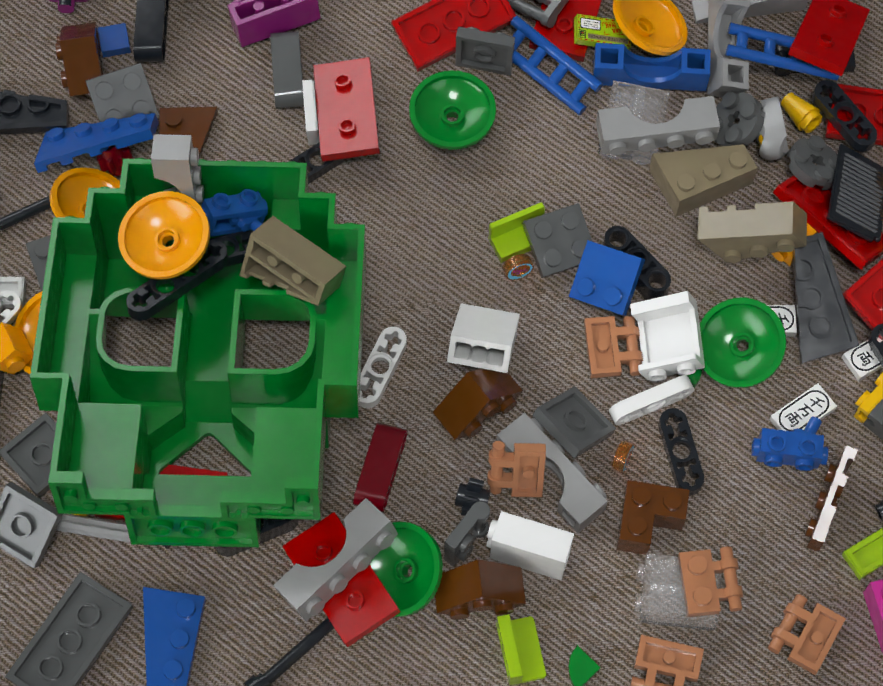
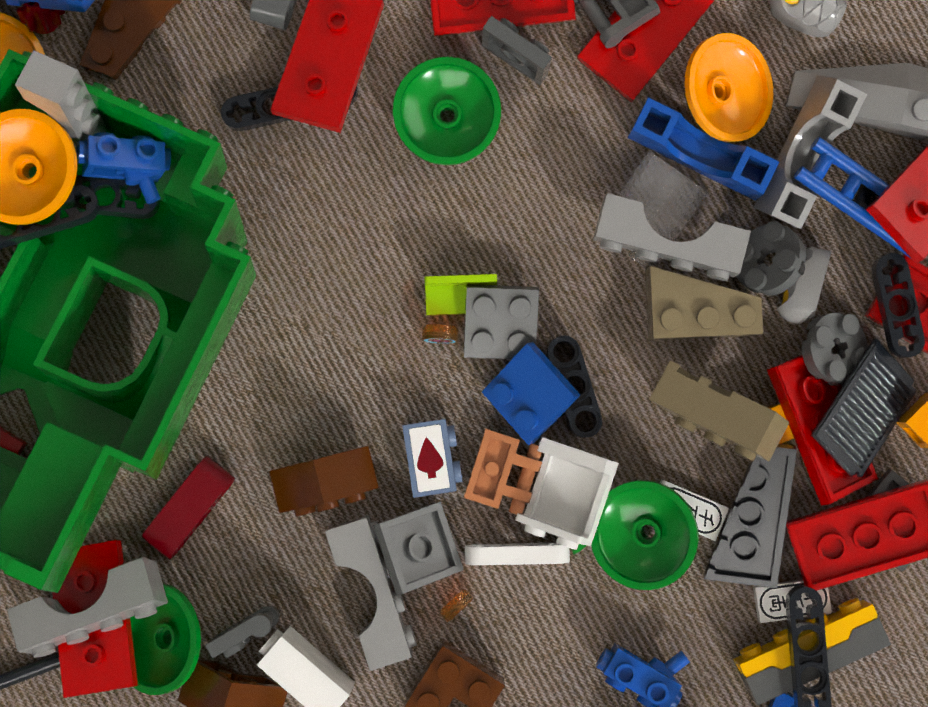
camera: 25 degrees right, 20 degrees up
(291, 262) = (160, 257): dark tan wedge -> none
(310, 109) = (285, 41): white tile -> none
(381, 345) = (225, 413): white beam -> none
(471, 493) = (271, 586): black gear -> none
(483, 338) = (357, 413): white brick -> none
(526, 465) = (335, 583): nougat plate -> none
(552, 356) = (431, 457): none -> brick
(565, 64) = (606, 102): blue bar -> none
(593, 30) = (660, 76): tile -> none
(683, 429) = (529, 652): black beam -> none
(797, 413) = (678, 633): white tile -> none
(802, 113) = (851, 275): yellow cone -> none

